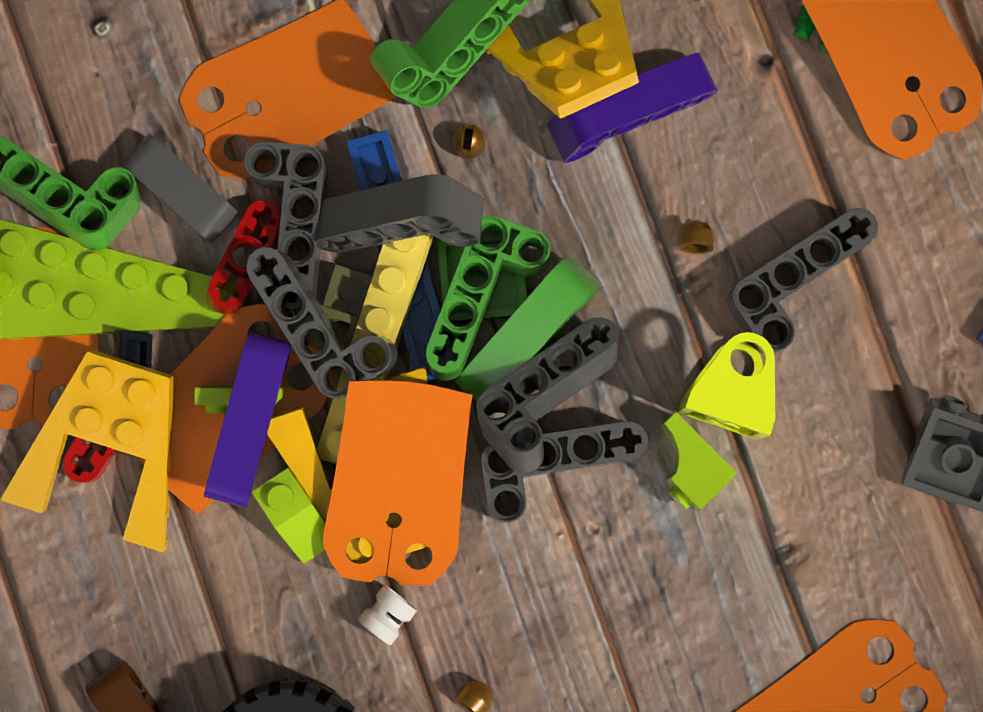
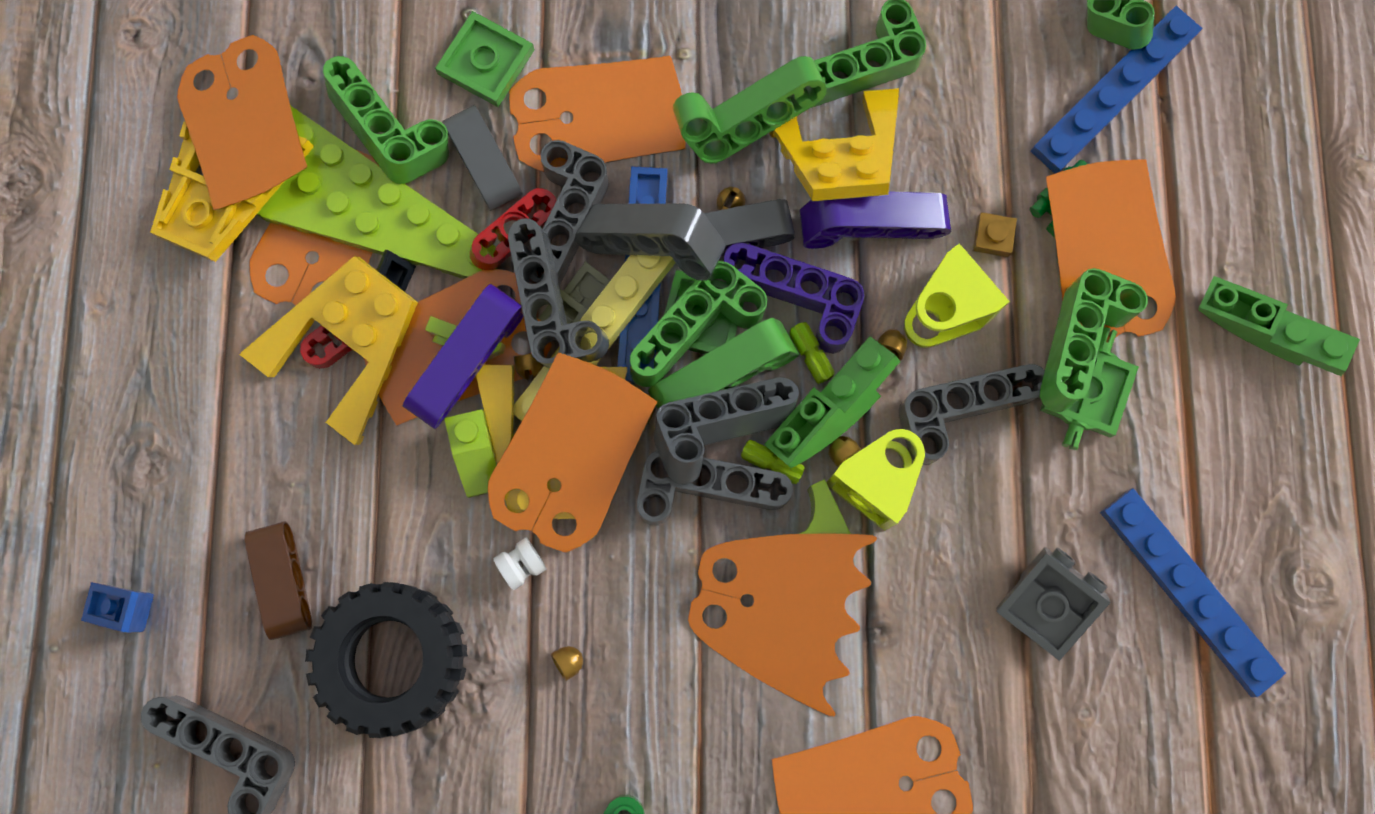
camera: 15 degrees right, 5 degrees down
(139, 74) = (485, 59): none -> bright green tile
(312, 399) = (524, 363): none -> pearl gold hinge
(501, 161) = (755, 224): none -> dark grey beam
(568, 217) = (790, 290): none -> dark purple beam
(604, 408) = (765, 458): none -> lime piece
(620, 282) = (815, 359): none -> lime piece
(659, 333) = (830, 413): none -> bright green slope
(684, 371) = (842, 449): none -> pearl gold hinge
(694, 562) = (795, 613): none -> orange piece
(750, 163) = (958, 296): none -> neon yellow hose
(765, 76) = (994, 234): none -> pearl gold plate
(898, 167) = (1093, 301): none -> bright green beam
(921, 211) = (1106, 397): none -> bright green plate

